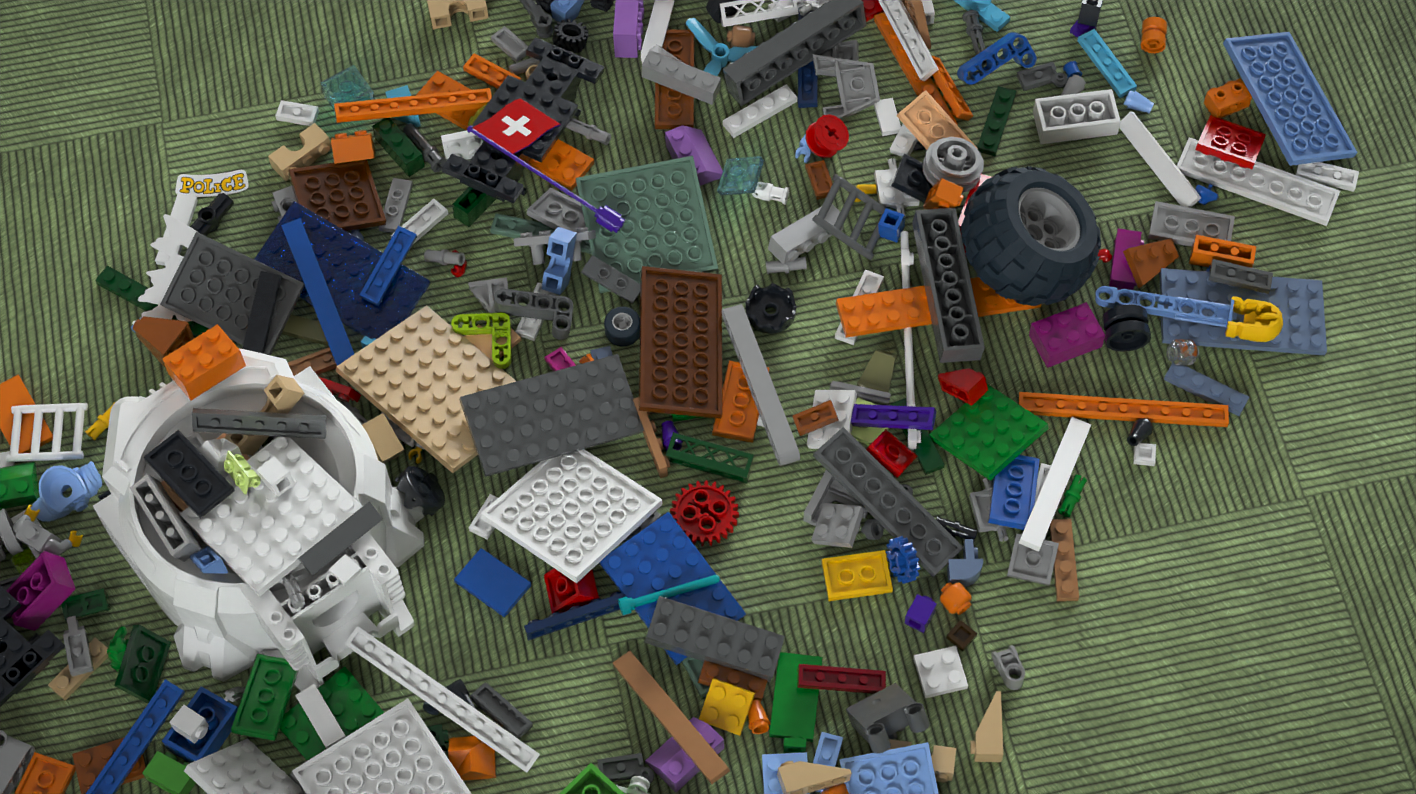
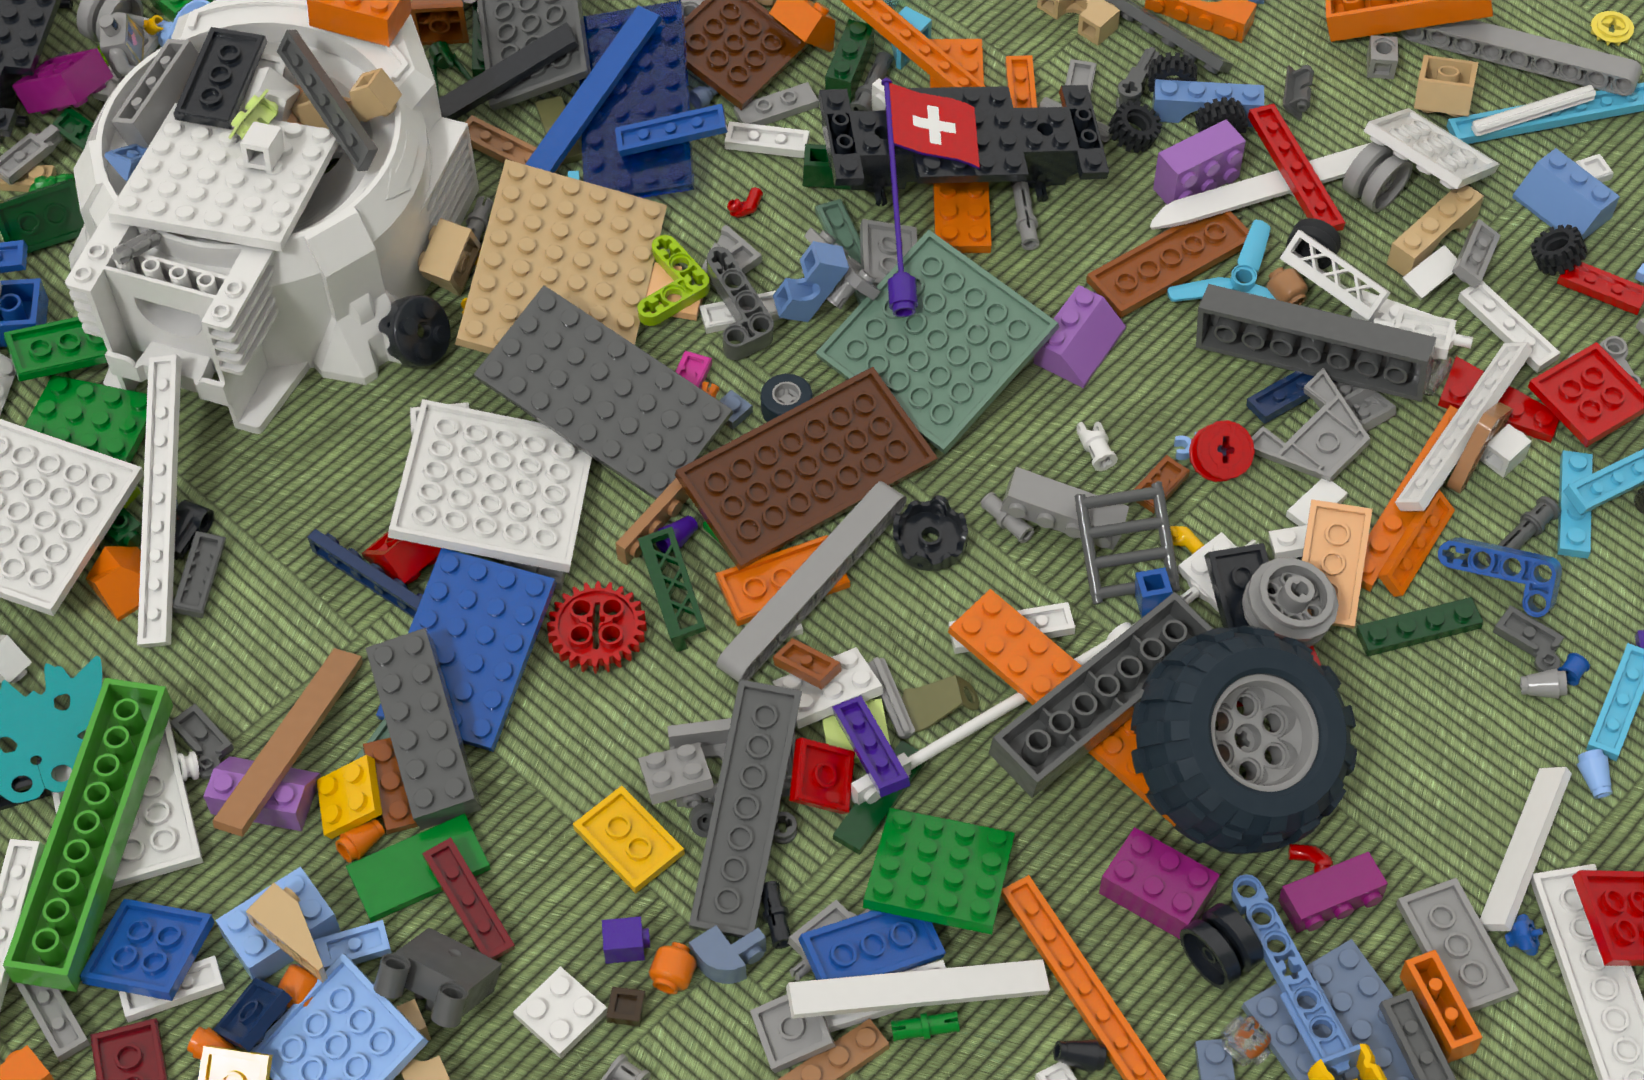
camera: 55 degrees right, 5 degrees down
(234, 694) = (49, 312): light grey axle -> none
(320, 716) = (78, 405): white tile -> none
(340, 538) = (228, 248): dark grey tile -> none
(343, 392) = (489, 175): red plate -> none
(345, 570) = (191, 275): white tile -> none
(444, 257) = (740, 184): light grey pin -> none
(492, 582) = (360, 473): blue tile -> none
(612, 279) = (836, 348): dark grey plate -> none
(628, 604) = (403, 610): teal piece -> none
(673, 73) = (1170, 246): light grey wedge -> none
(740, 175) = (1089, 397): clear light blue plate -> none
(759, 111) = (1204, 368): white plate -> none
(794, 744) = (347, 901): green plate -> none
(902, 559) = (676, 872): blue gear -> none
(944, 195) = (1227, 610): orange brick -> none
(964, 384) = (986, 804): red slope -> none
(1076, 116) = (1501, 709): white brick -> none
(1148, 259) = (1348, 914): dark orange wing -> none

